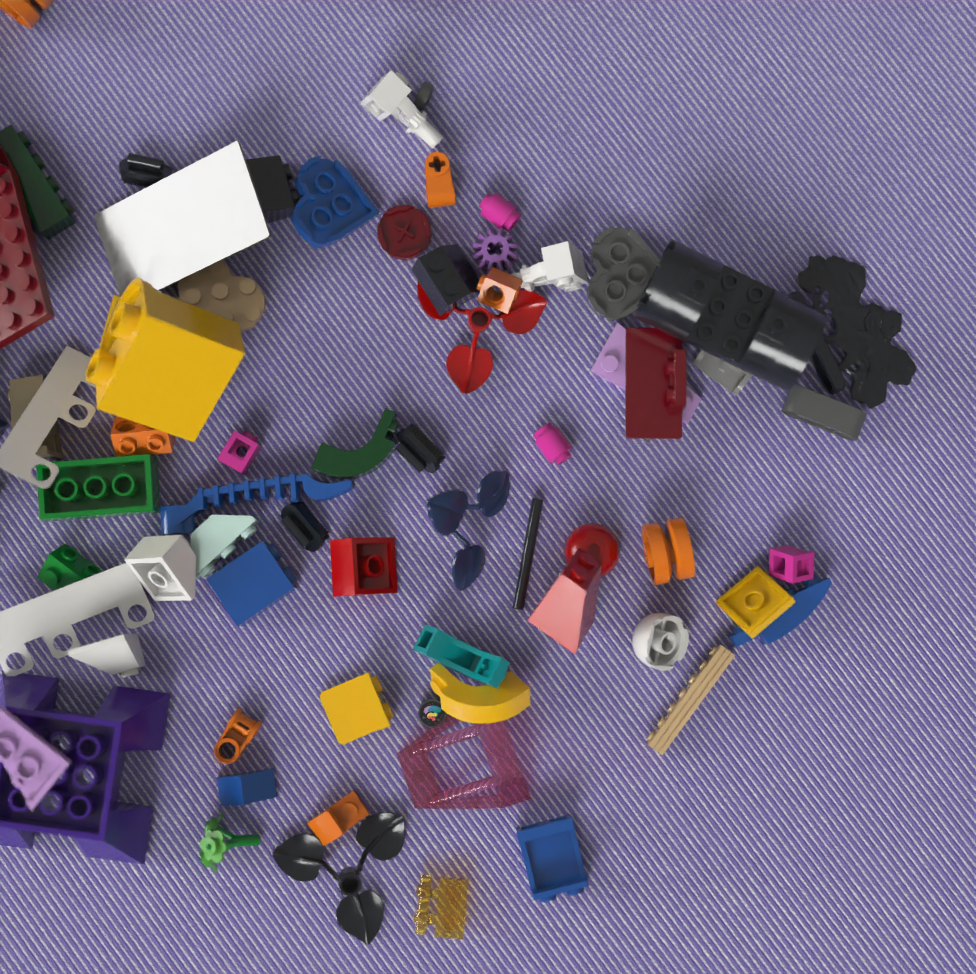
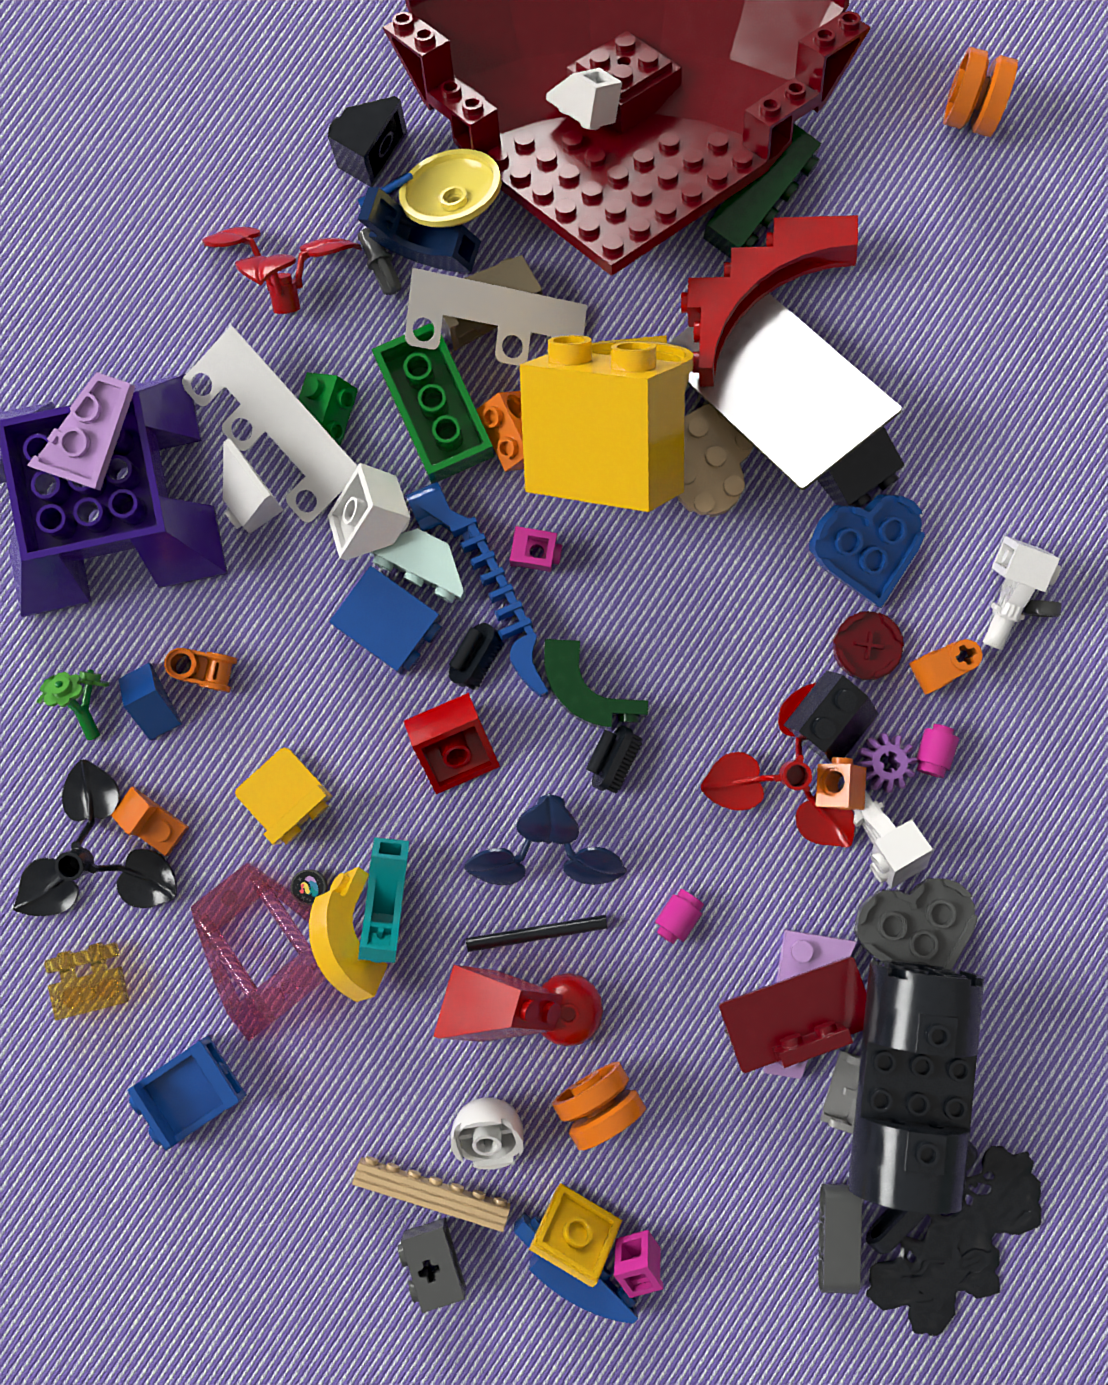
camera: 70 degrees right, 0 degrees up
(85, 176) = (791, 251): none -> red arch
(143, 170) = (825, 314): black piece -> none
(758, 712) = (435, 1244): none -> dark grey brick

